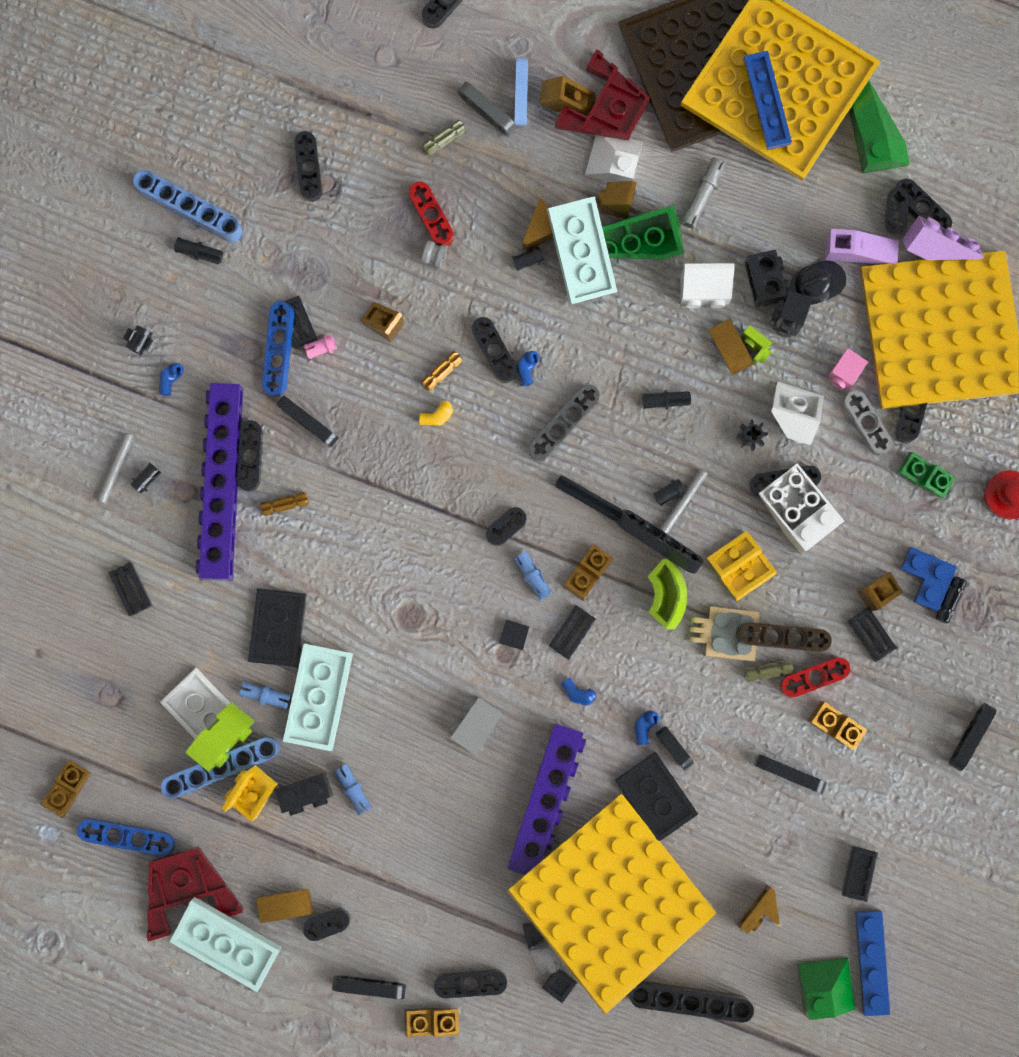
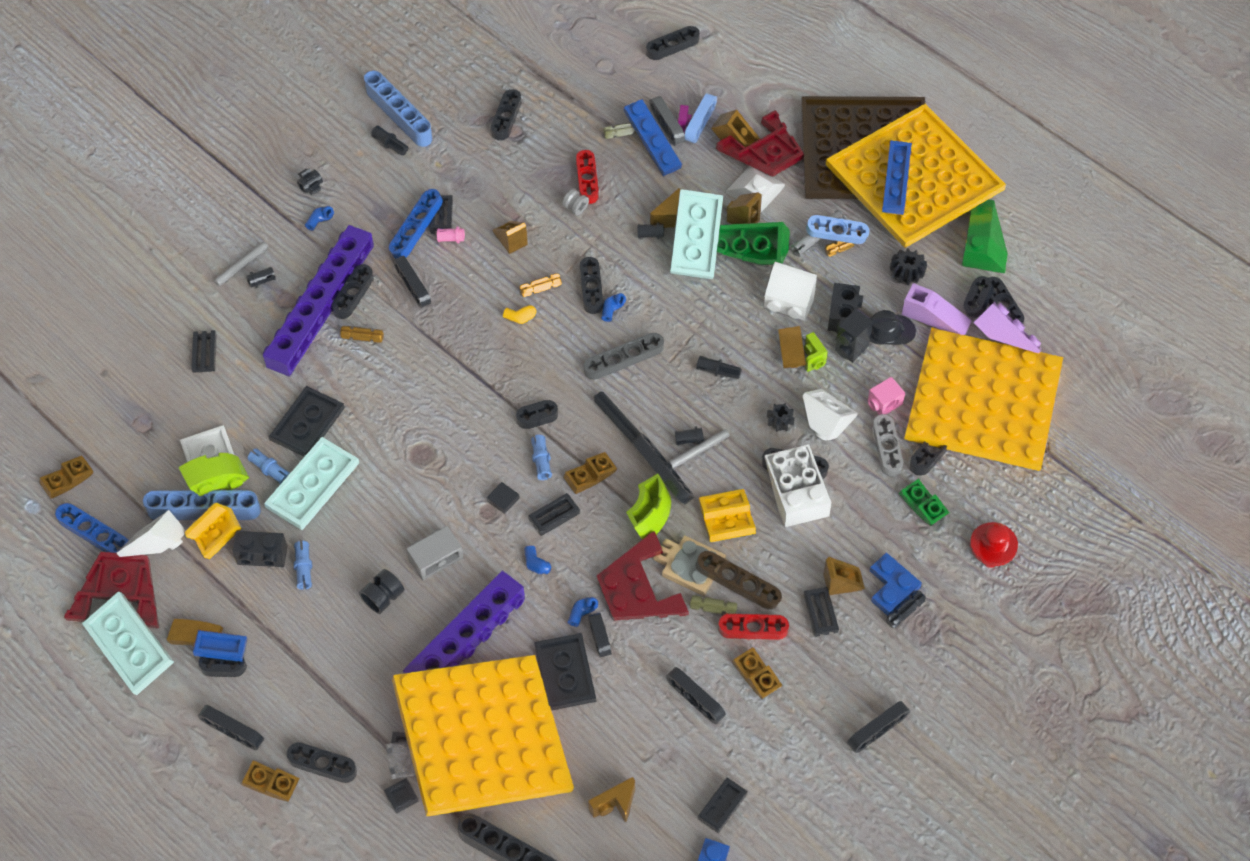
camera: 20 degrees right, 25 degrees down
(192, 825) = (155, 537): none -> white slope
(318, 912) = (220, 646): none -> blue tile
(445, 790) = (378, 594): none -> black wheel
(480, 138) = (652, 137): none -> blue plate
(505, 99) = (684, 117): none -> magenta plate
(680, 687) = (628, 587): none -> dark red wing
(734, 195) = (838, 246): none -> pearl gold axle
(743, 188) = (830, 235): none -> light blue beam
(815, 208) = (908, 266): none -> black gear

